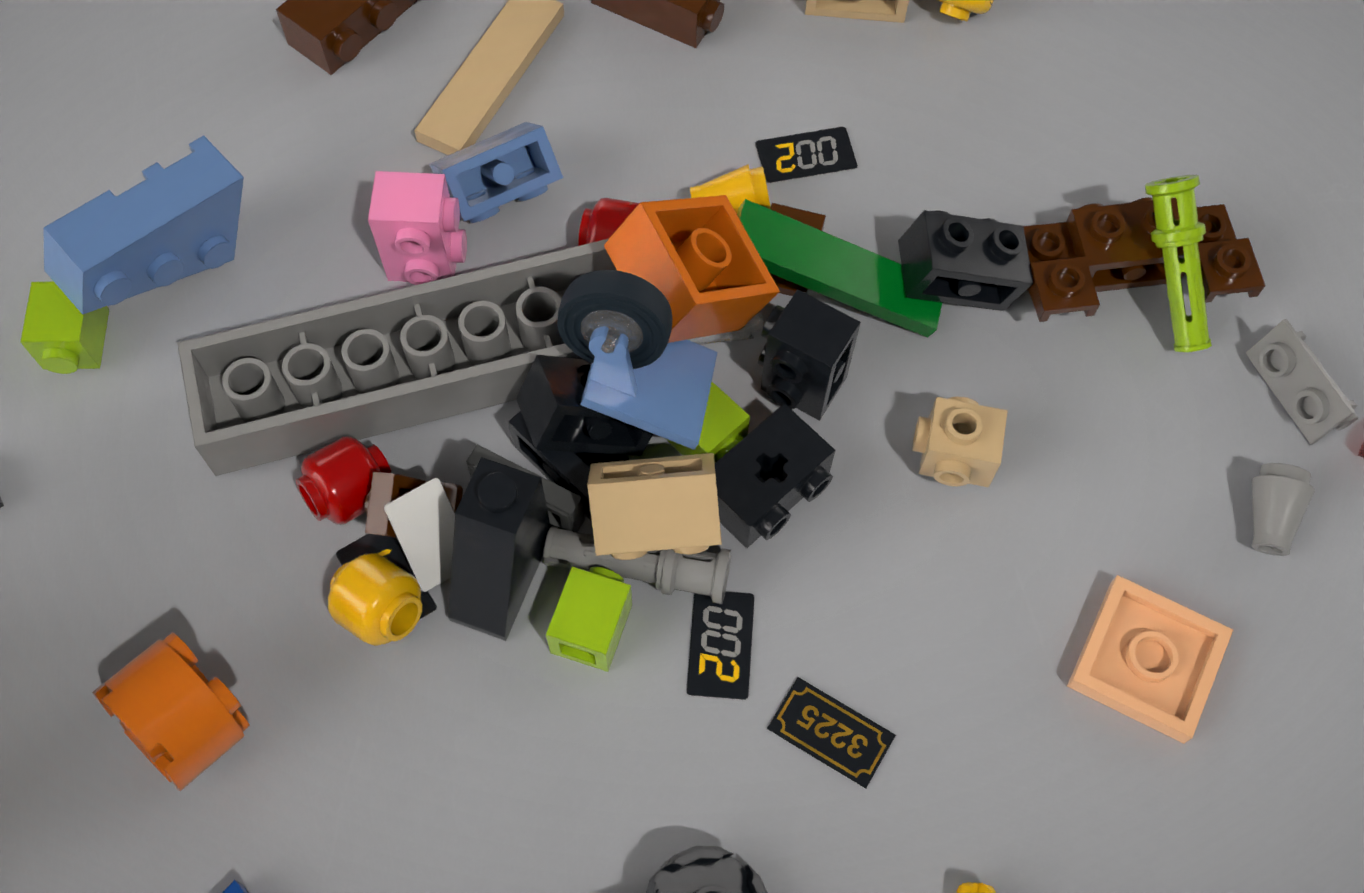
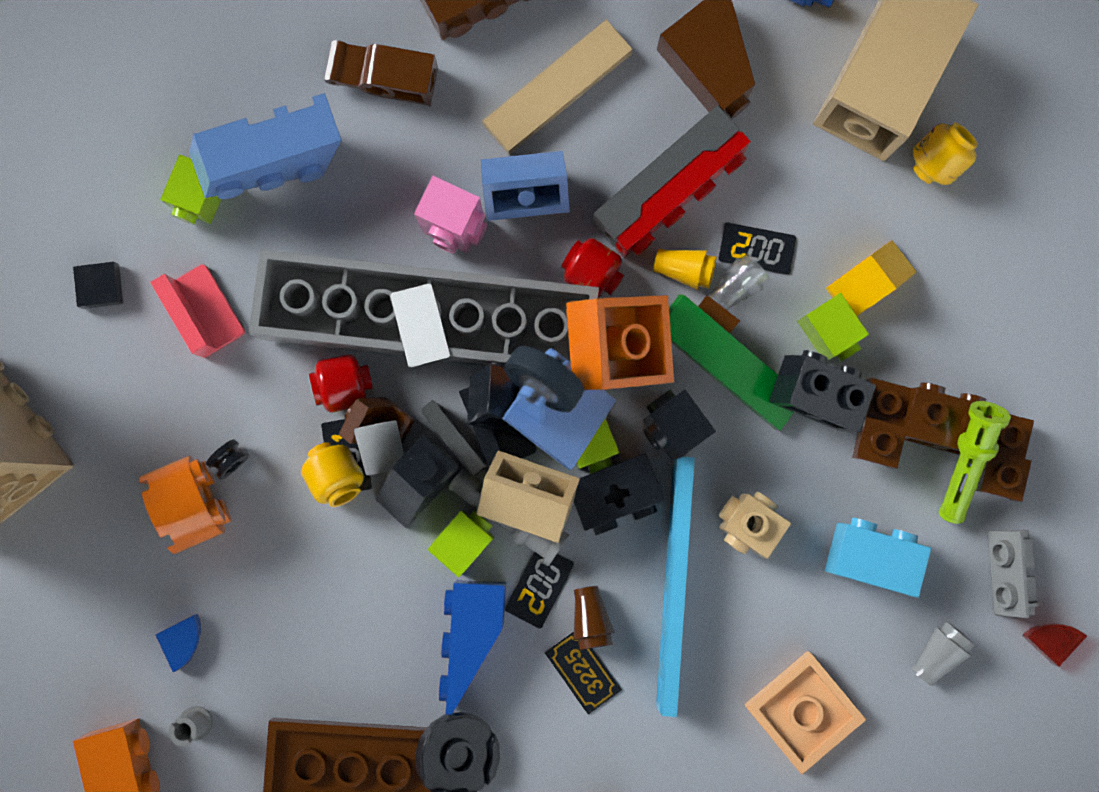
camera: 25 degrees right, 20 degrees up
(117, 469) = (199, 310): none -> coral panel
(217, 639) = (227, 459): none -> black bush
(274, 118) = (383, 71): none -> reddish brown piece
(425, 353) = (420, 325): none -> white sticker
(655, 715) = (476, 622): none -> blue slope
(671, 113) = (670, 182): none -> piece
(807, 180) = (740, 282): none -> clear cone
(813, 653) = (591, 619): none -> reddish brown cone
(903, 566) = (675, 586): none -> medium azure tile
(938, 184) = (834, 329): none -> lime brick
(952, 138) = (873, 278): none -> yellow slope
(1135, 421) = (877, 558): none -> medium azure brick

